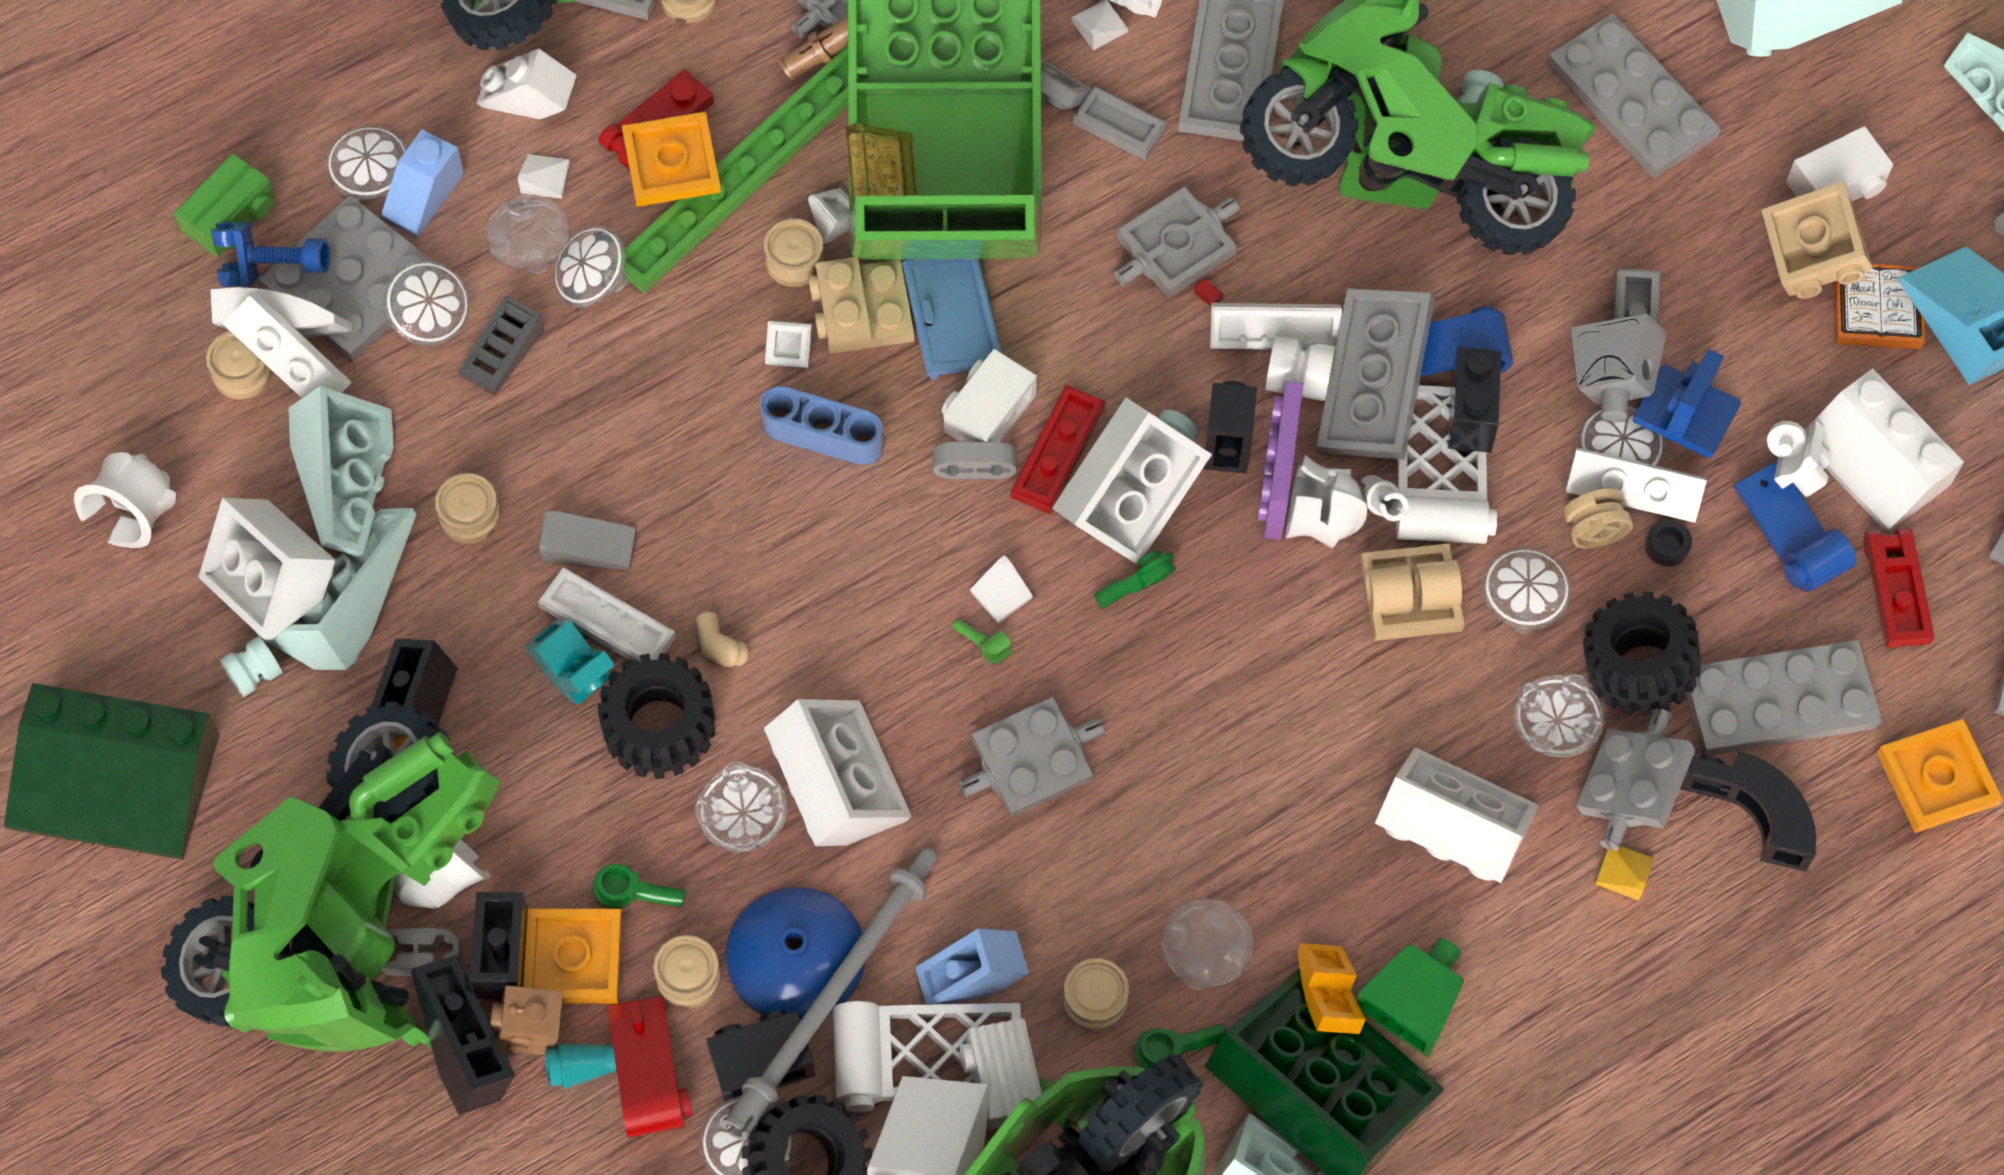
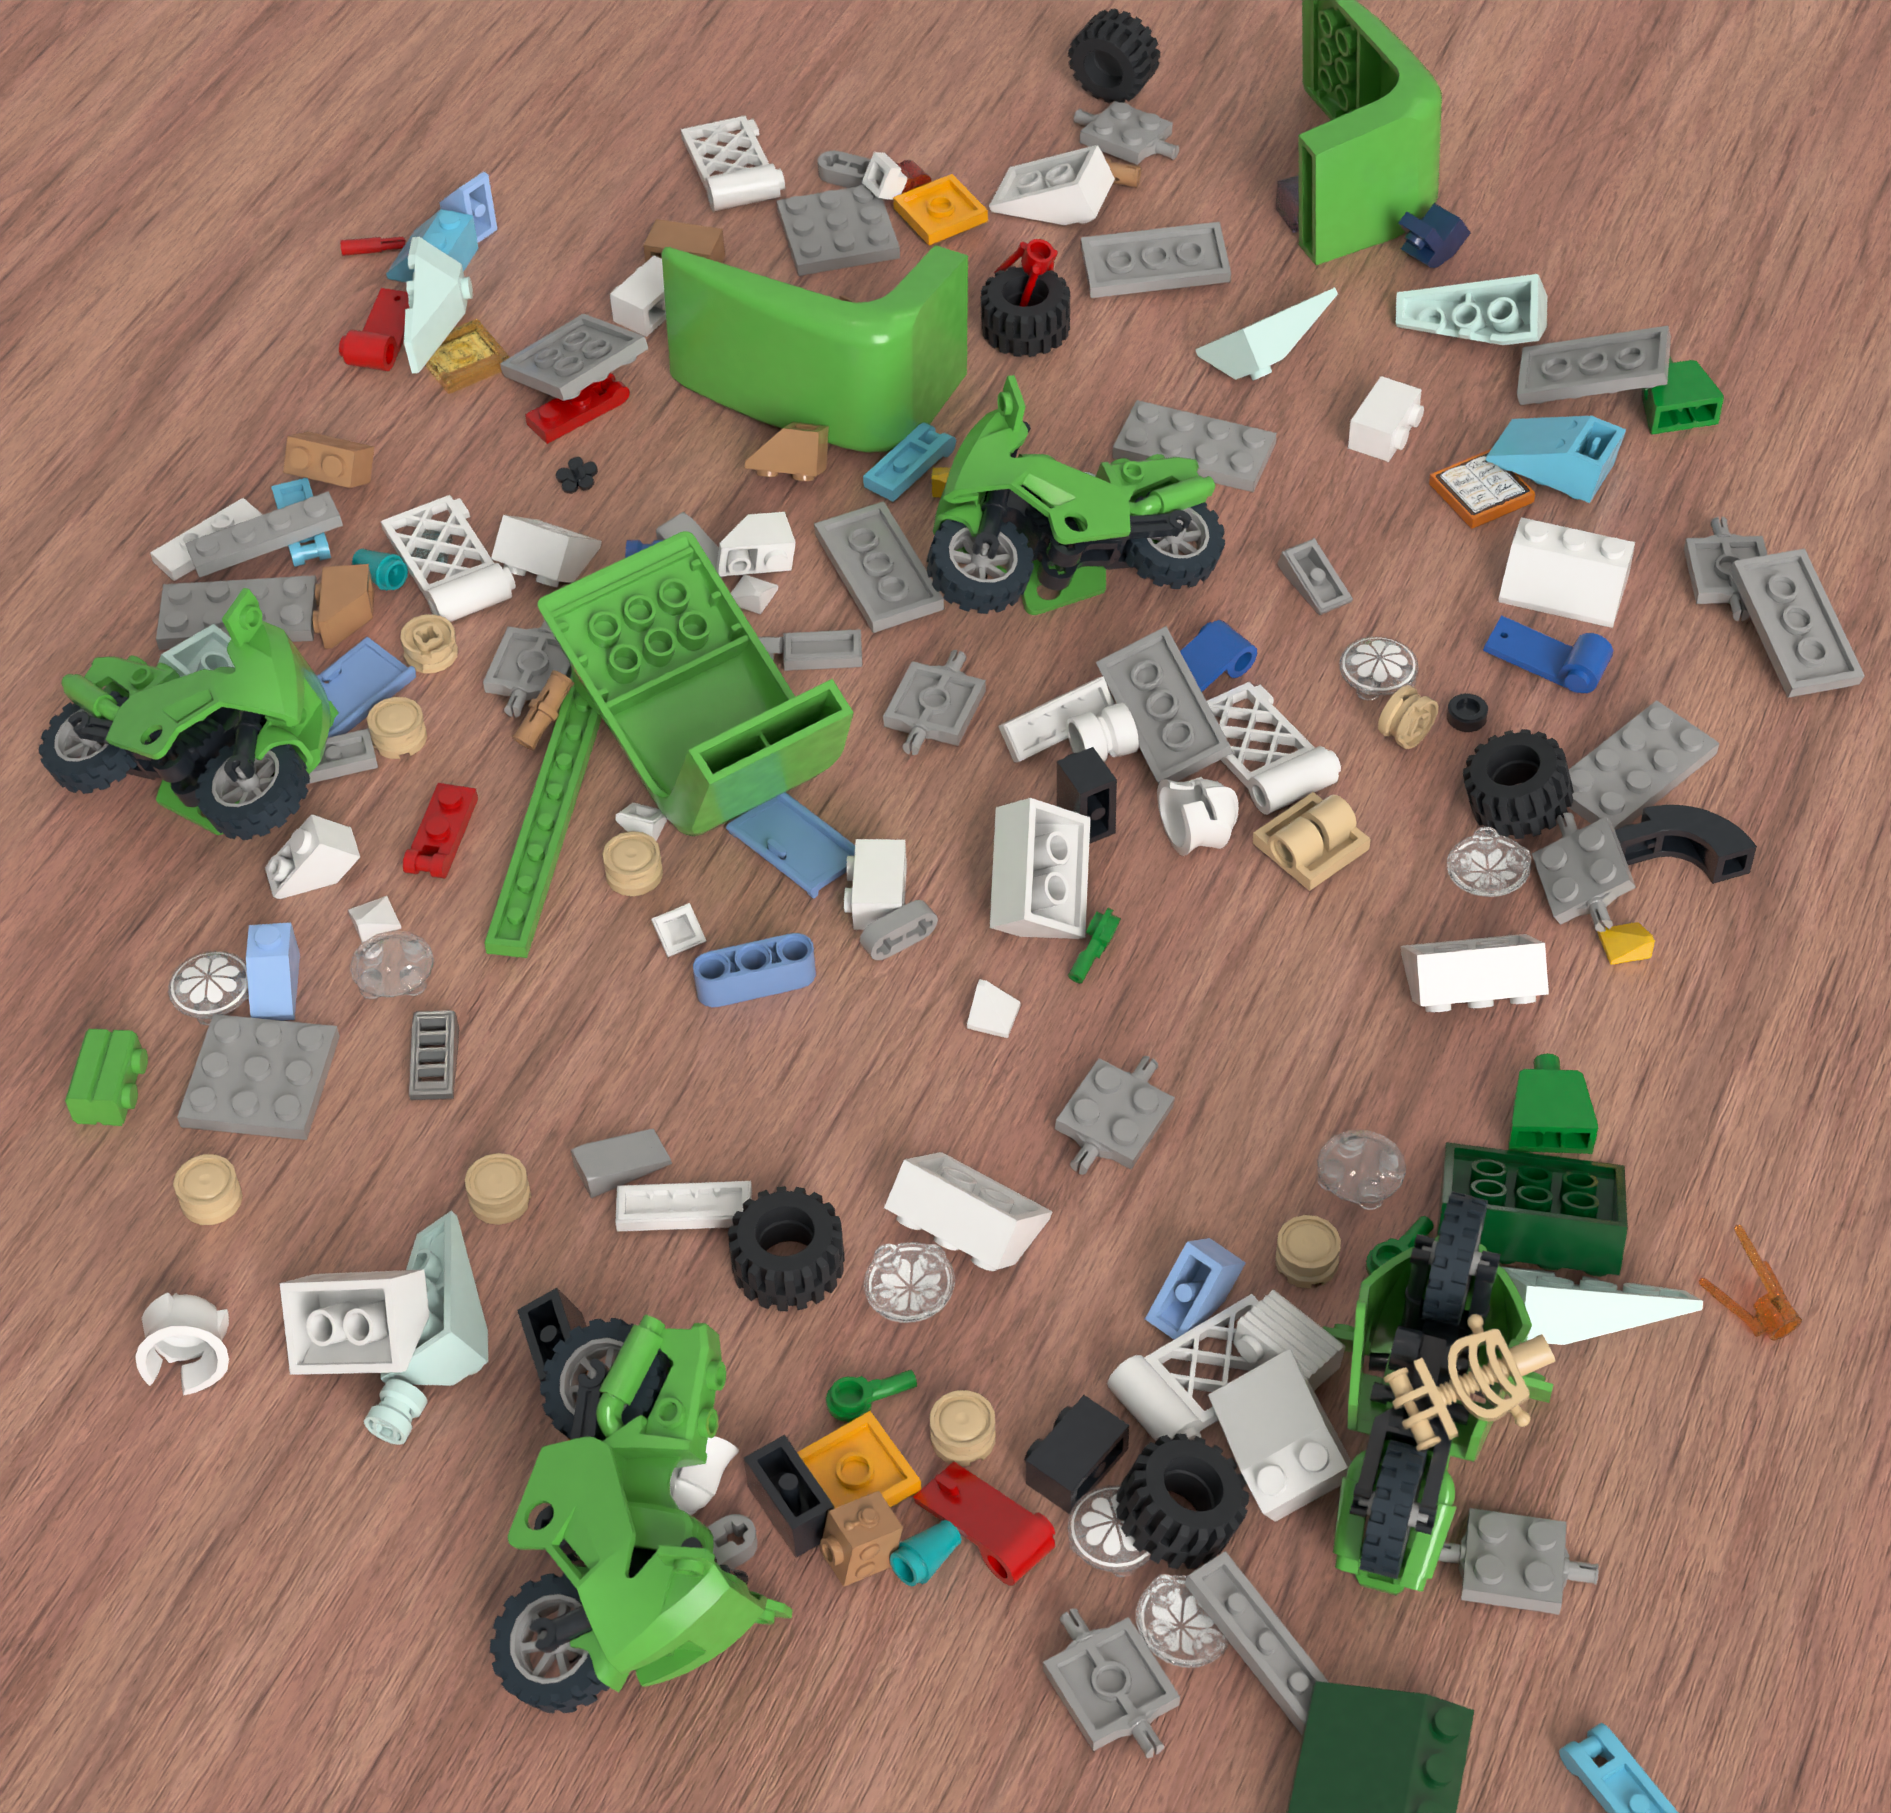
camera: 30 degrees left, 15 degrees down
(109, 770) = (324, 1566): dark green slope -> none
(283, 347) = (251, 1148): white plate -> none
(303, 315) = (218, 1127): white slope -> none
(313, 255) = (218, 1067): blue bar -> none
(340, 461) = (358, 1205): light aqua wedge -> none
(426, 303) = (345, 1056): dish -> none
(461, 1036) = (815, 1585): black slope -> none
(569, 660) = (677, 1252): teal brick -> none
(590, 267) = (469, 957): dish -> none
(671, 159) = (482, 842): light orange plate -> none
(717, 646) = (800, 1173): tan arm -> none
(761, 1092) = (1110, 1465): light grey bar -> none
(785, 979) = (1031, 1386): blue dish -> none
(861, 304) = (716, 872): tan plate -> none
(880, 161) = (660, 750): clear yellow tile -> none
(993, 648) = (1019, 1055): bright green hand -> none
(1057, 449) = (956, 892): red tile -> none
(1208, 292) = (985, 727): red piece -> none
(1280, 460) = (1146, 798): medium lavender plate -> none
(1327, 987) = (1479, 1140): light orange slope -> none
(1383, 498) = (1247, 780): white pin -> none
(1474, 399) = (1254, 684): black brick -> none
(1526, 589) = (1392, 796): dish -> none
(1618, 361) = (1336, 607): light grey torso -> none
(1642, 484) = (1430, 678): white plate -> none
(1688, 407) = (1408, 611): blue bracket -> none
(1799, 455) = (1516, 600): white hips -> none
(1817, 240) = (1410, 462): tan plate -> none
(1899, 588) = (1655, 653): red plate -> none
(1939, 775) = (1789, 755): light orange plate -> none

